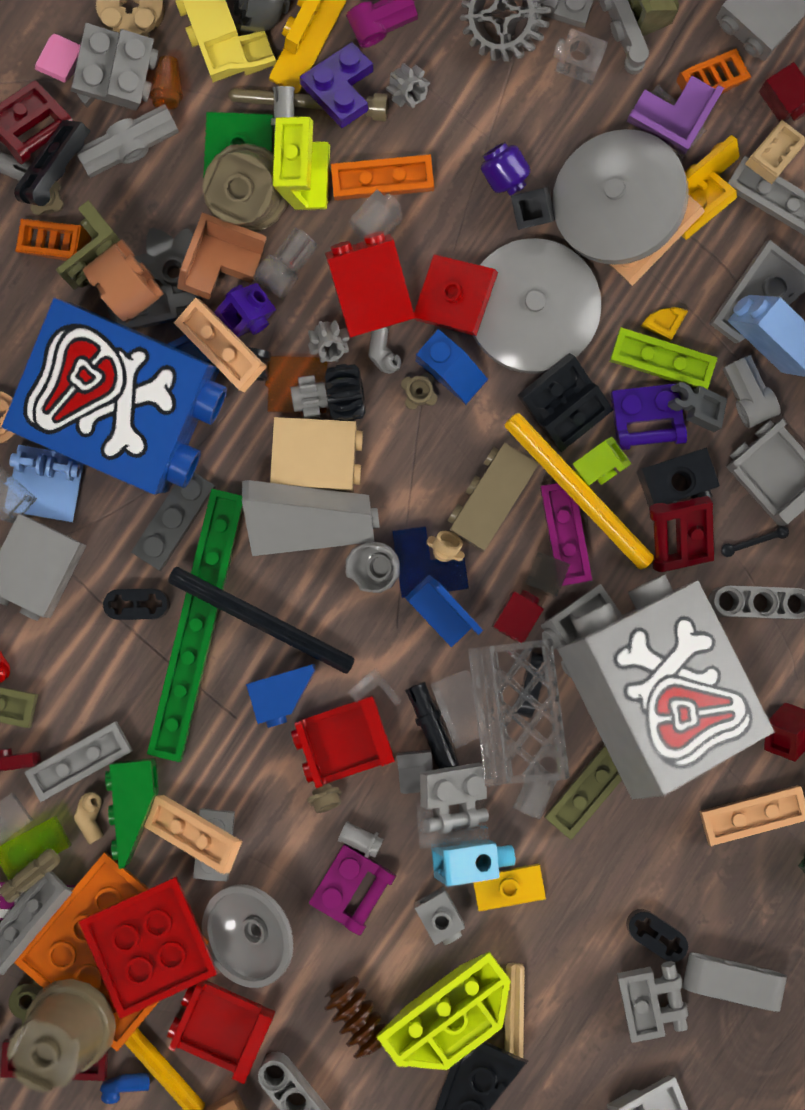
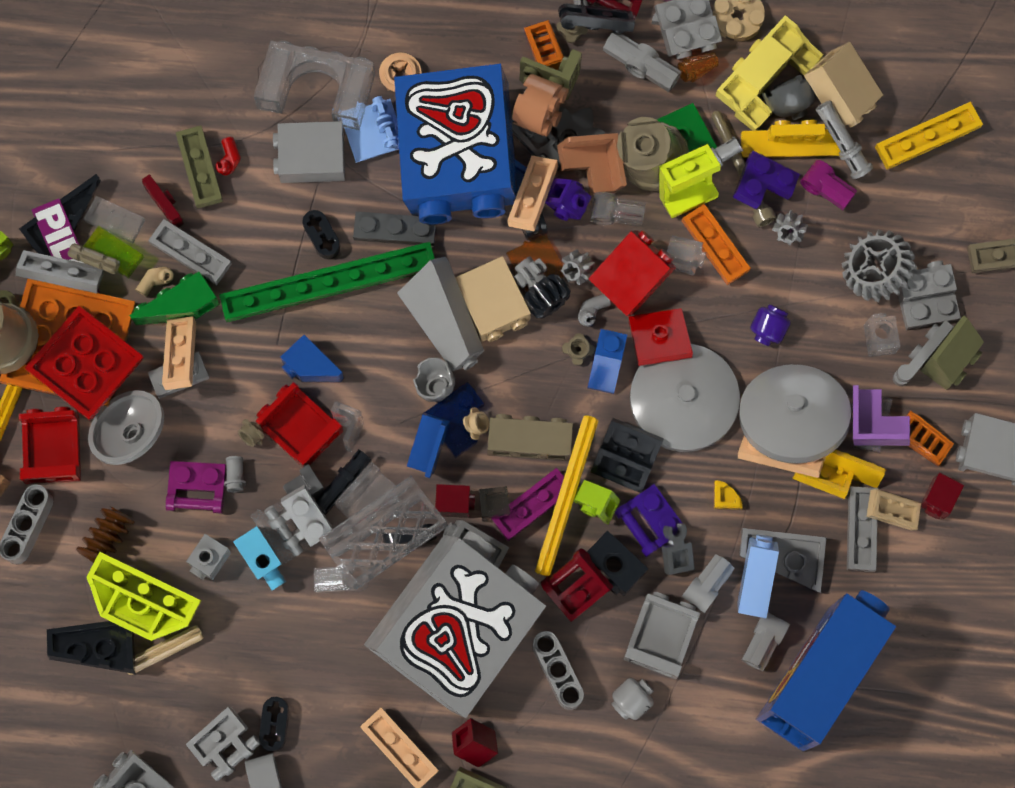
camera: 60 degrees right, 10 degrees down
(261, 620) = (355, 323): black axle -> none
(511, 888) = (254, 598): yellow plate -> none
(533, 208) = (752, 357): black brick -> none
(584, 794) = (347, 616): olive plate -> none
(662, 359) = (697, 508): lime plate -> none
(728, 549) = (584, 630): black hinge -> none

